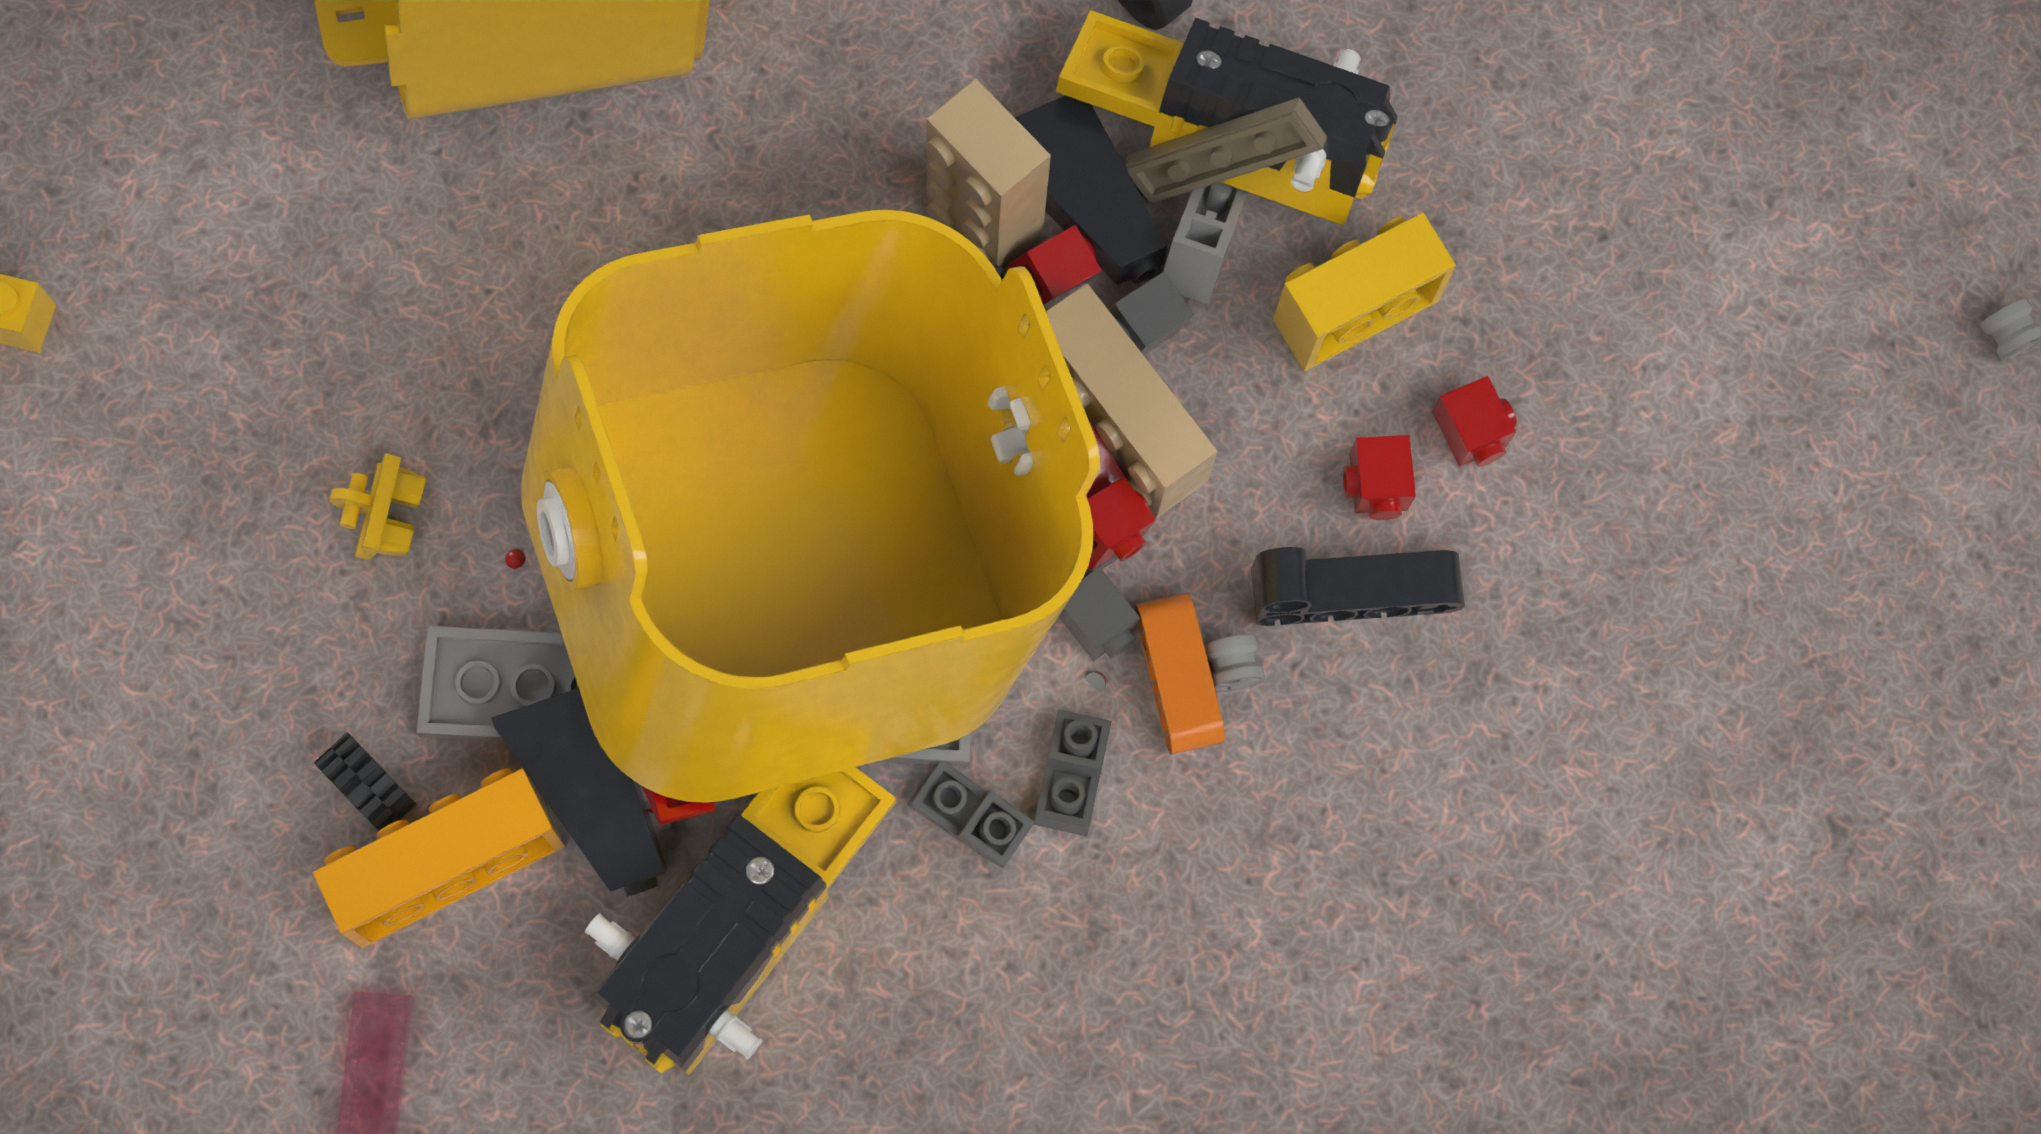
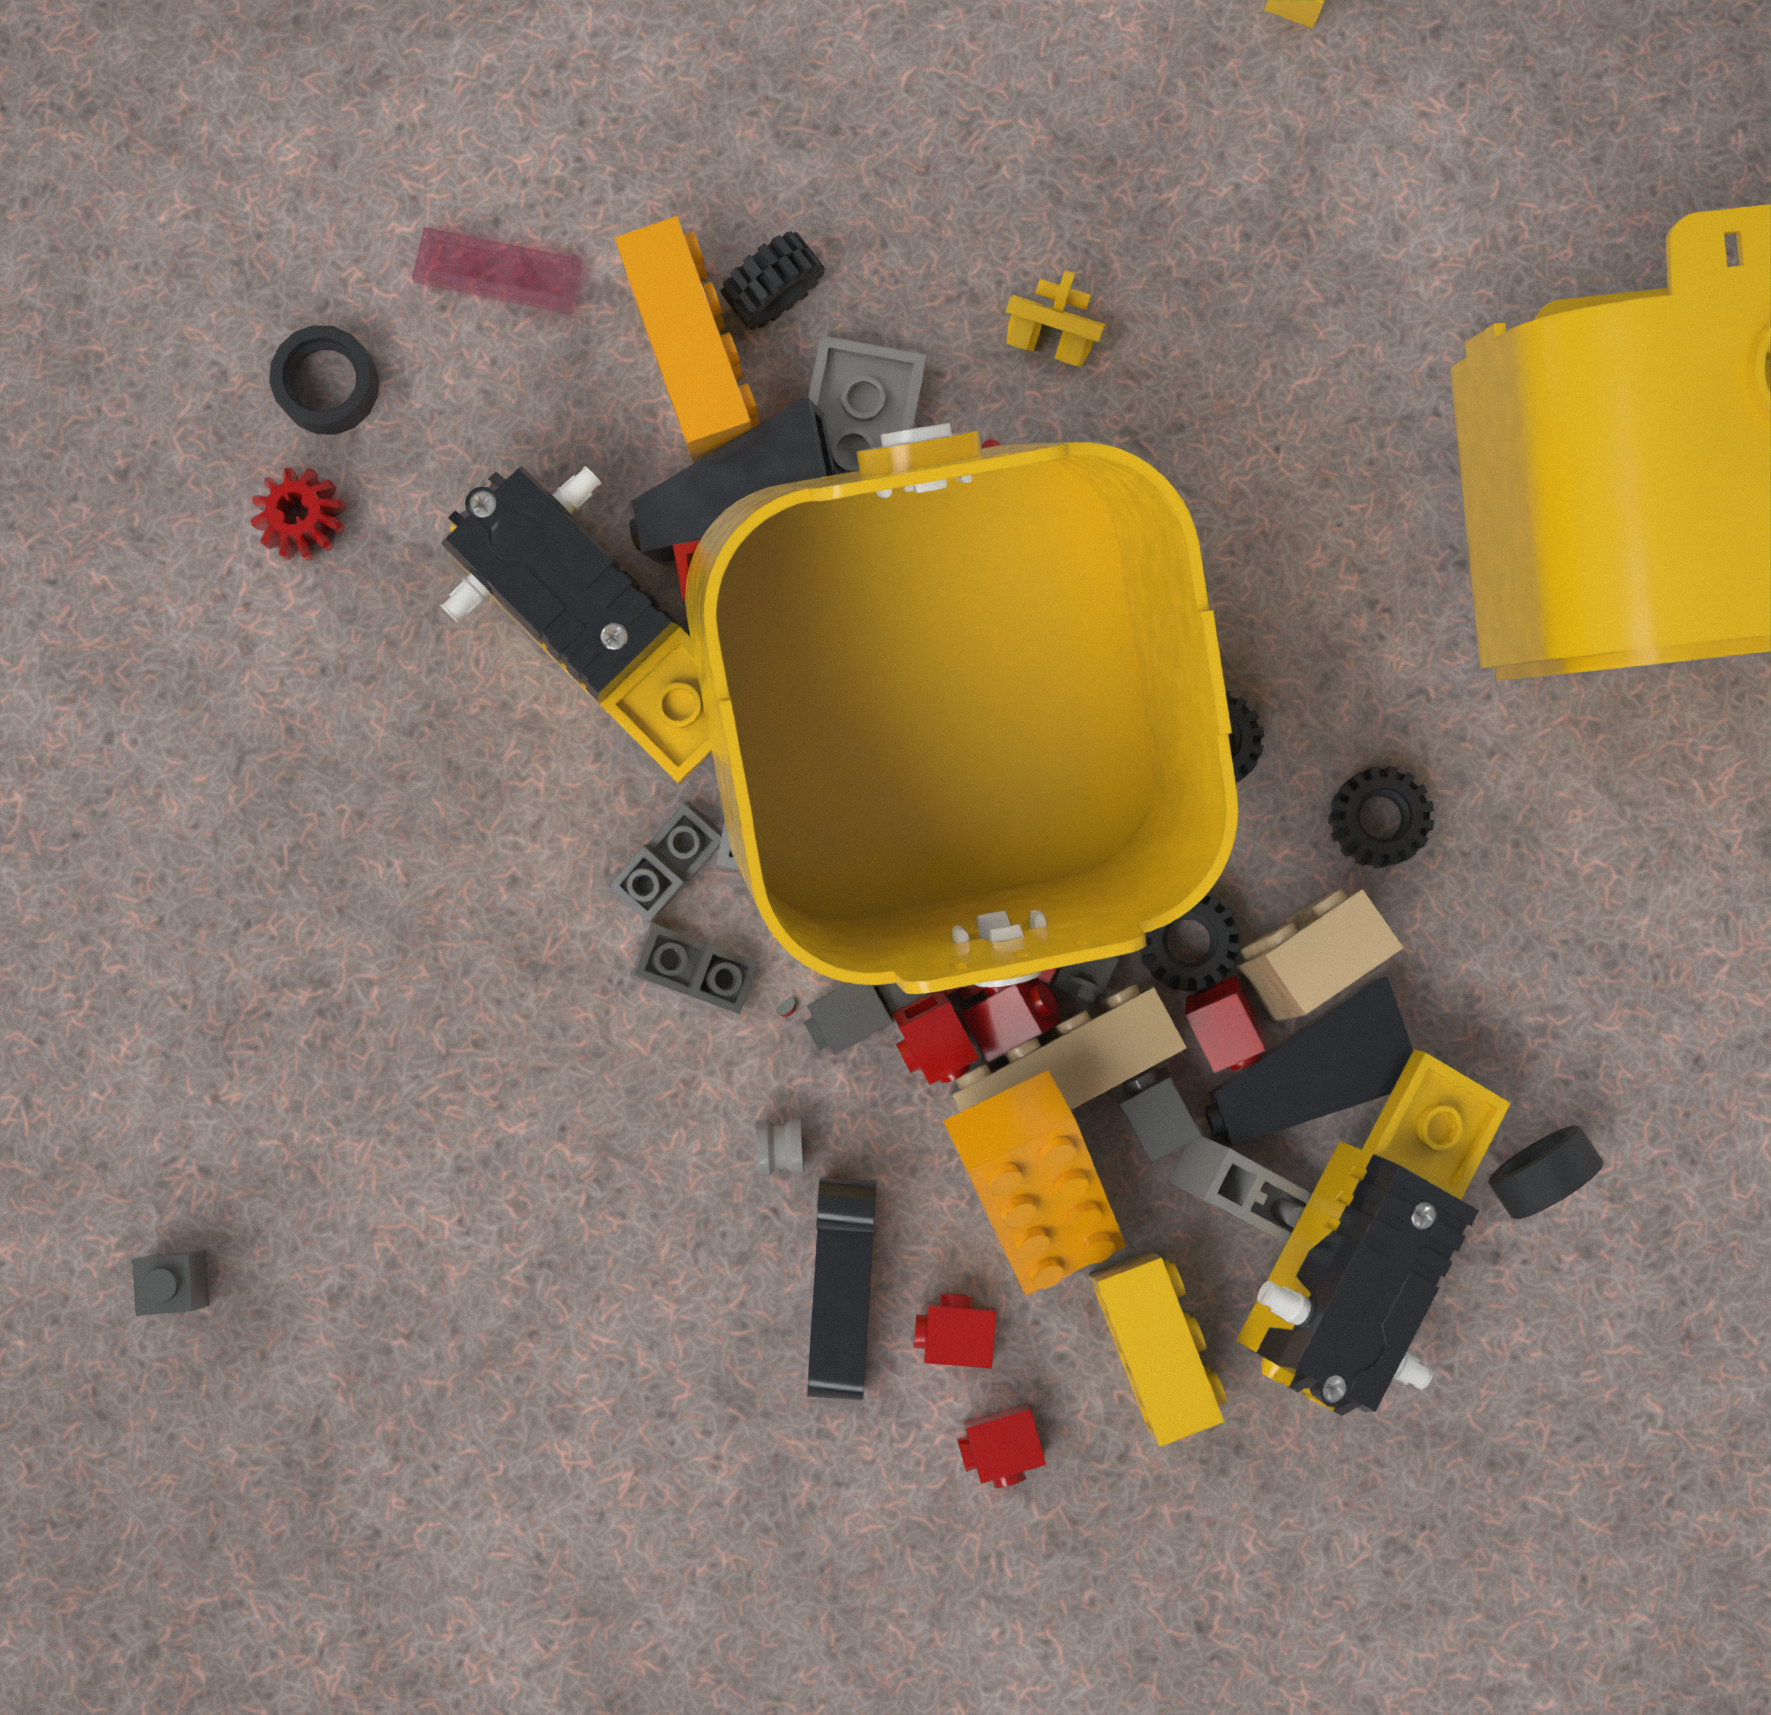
camera: 105 degrees right, 10 degrees up
(839, 128) = (1412, 807): none -> black tyre
(1182, 673) = (778, 1089): orange beam -> none
(1225, 151) = (1321, 1220): dark tan tile -> none
(1234, 402) = (1036, 1182): none -> light orange brick

